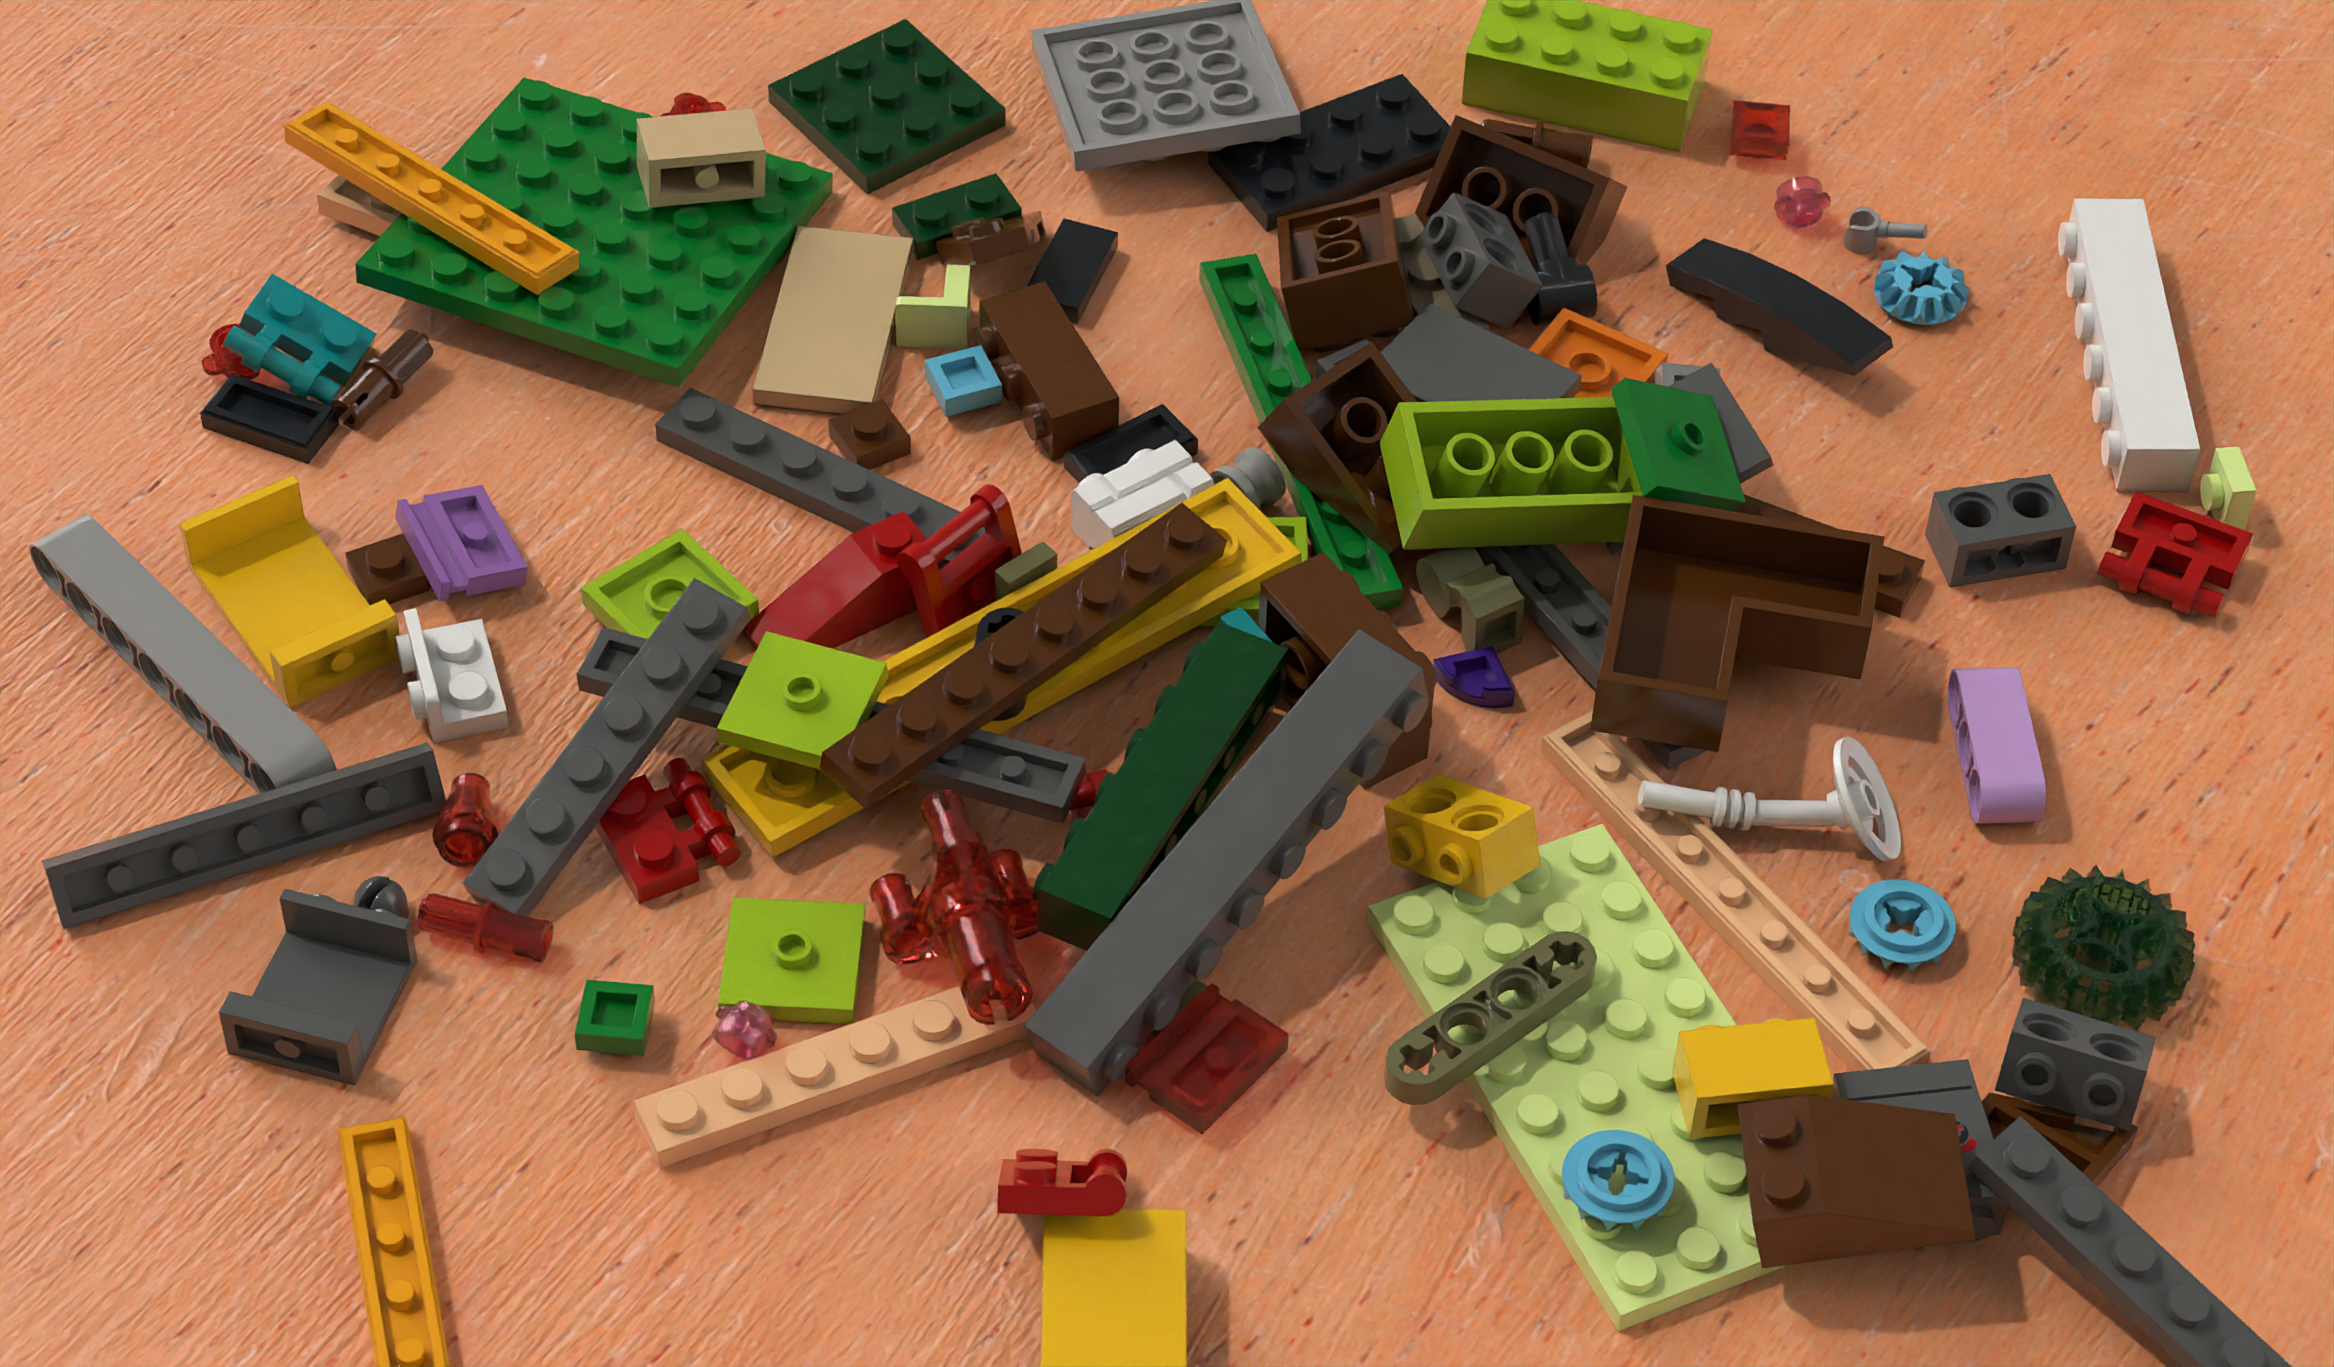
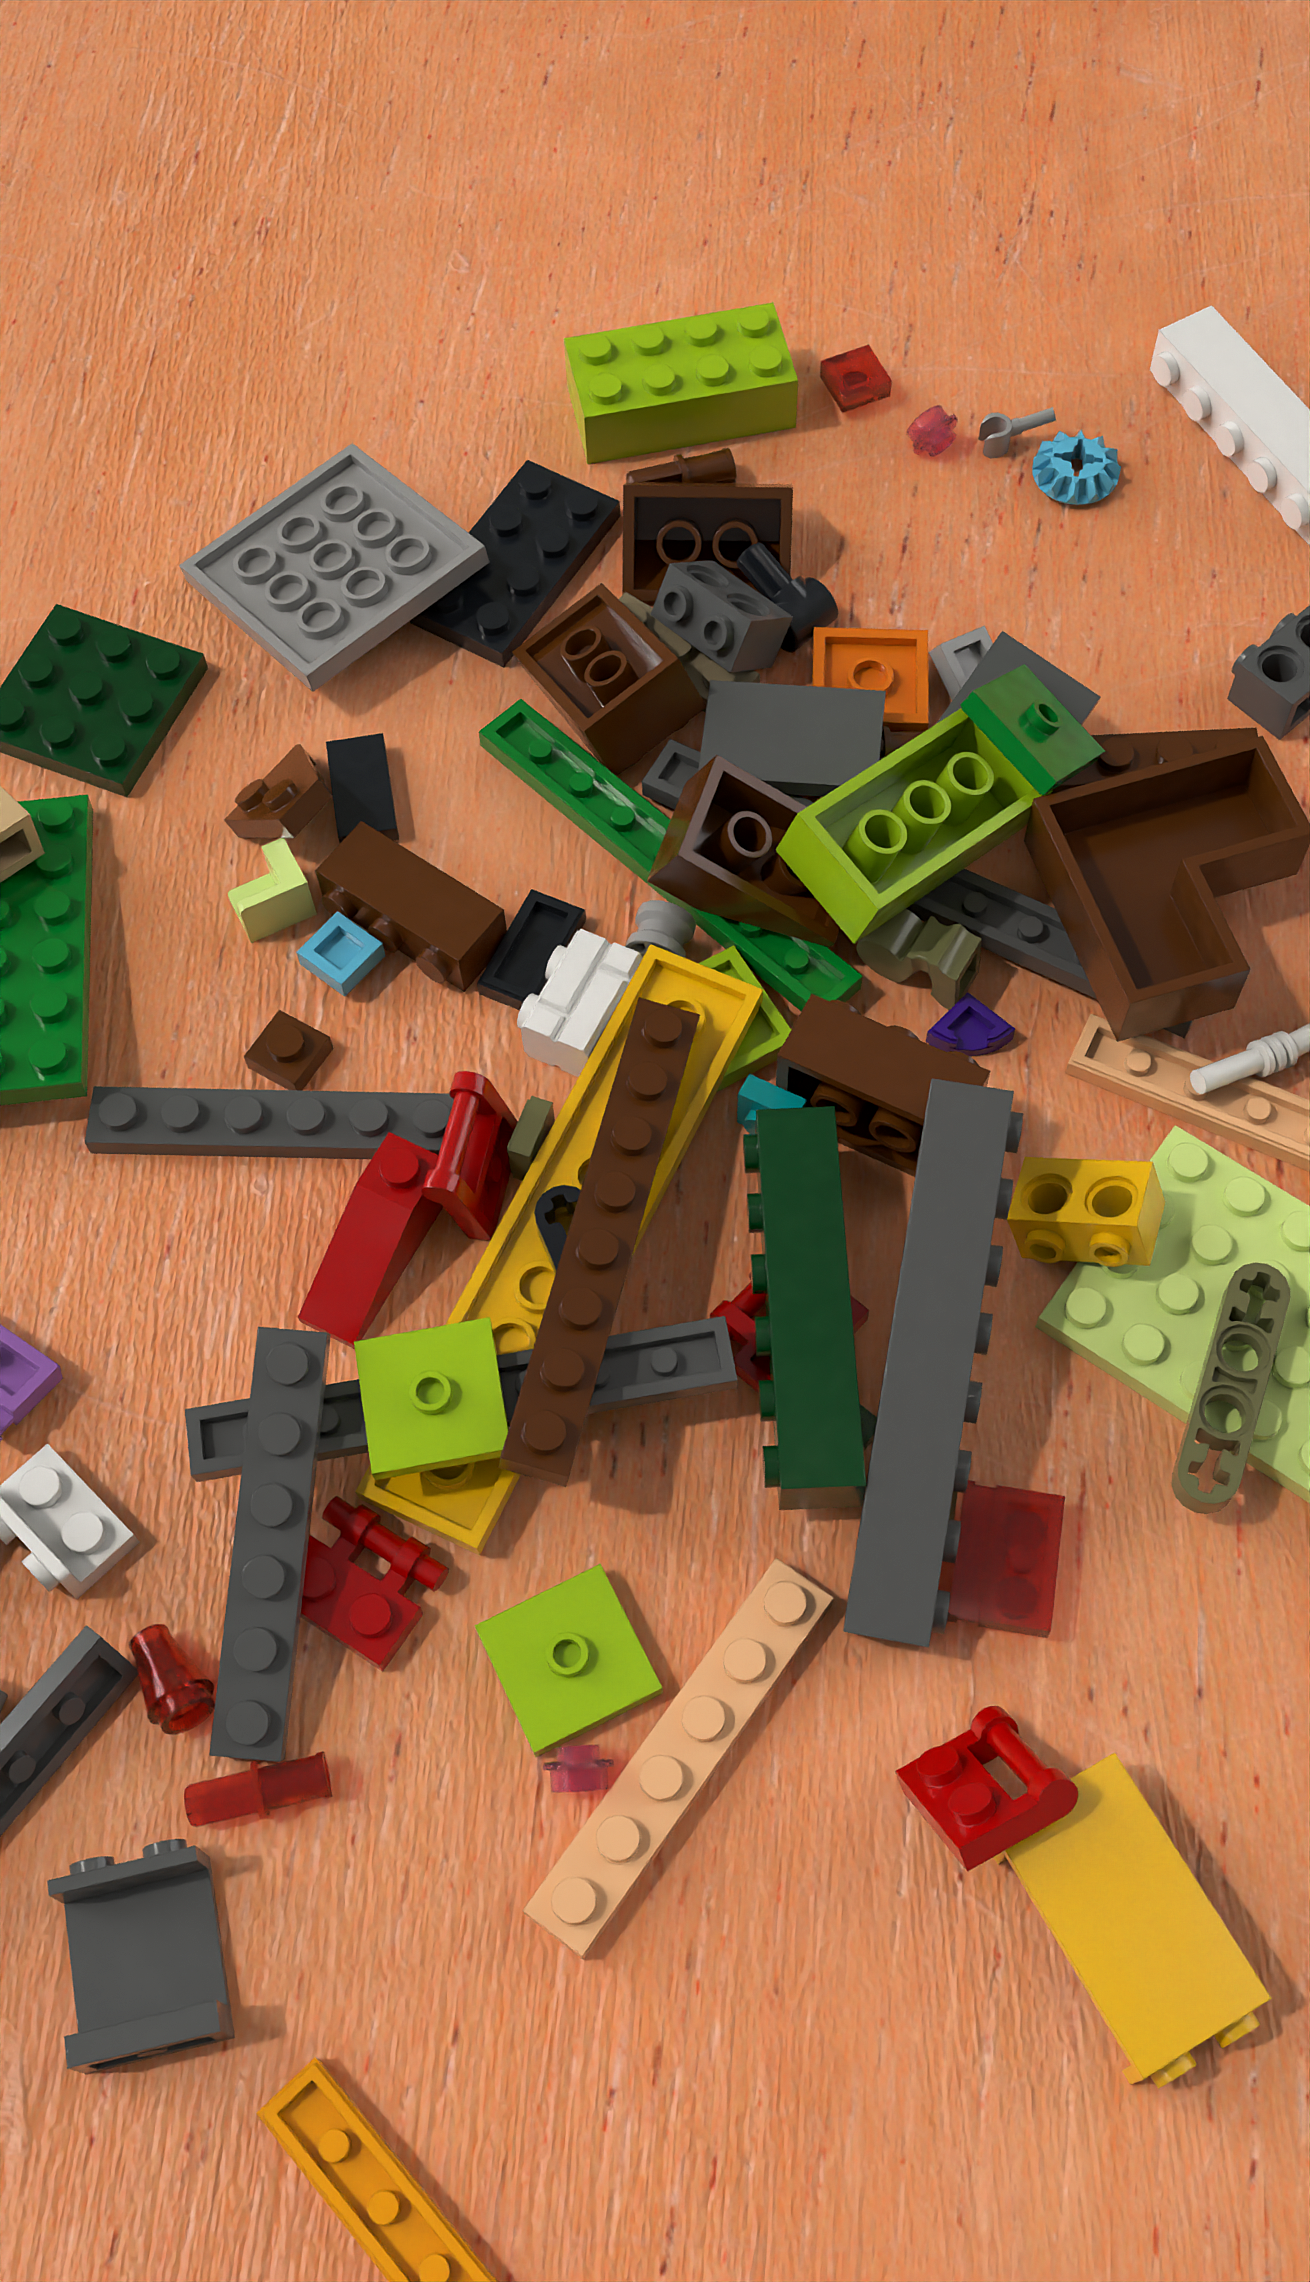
camera: 25 degrees left, 15 degrees up
(385, 895) = (153, 1823): dark grey hinge -> none
(615, 1017) = (447, 1825): green plate -> none
(646, 587) = (208, 1324): lime plate -> none
(833, 320) = (181, 948): tan tile -> none
(933, 215) = (212, 788): dark green plate -> none
(964, 912) = (713, 1539): clear red wheel -> none
(1787, 309) = (998, 541): black slope -> none

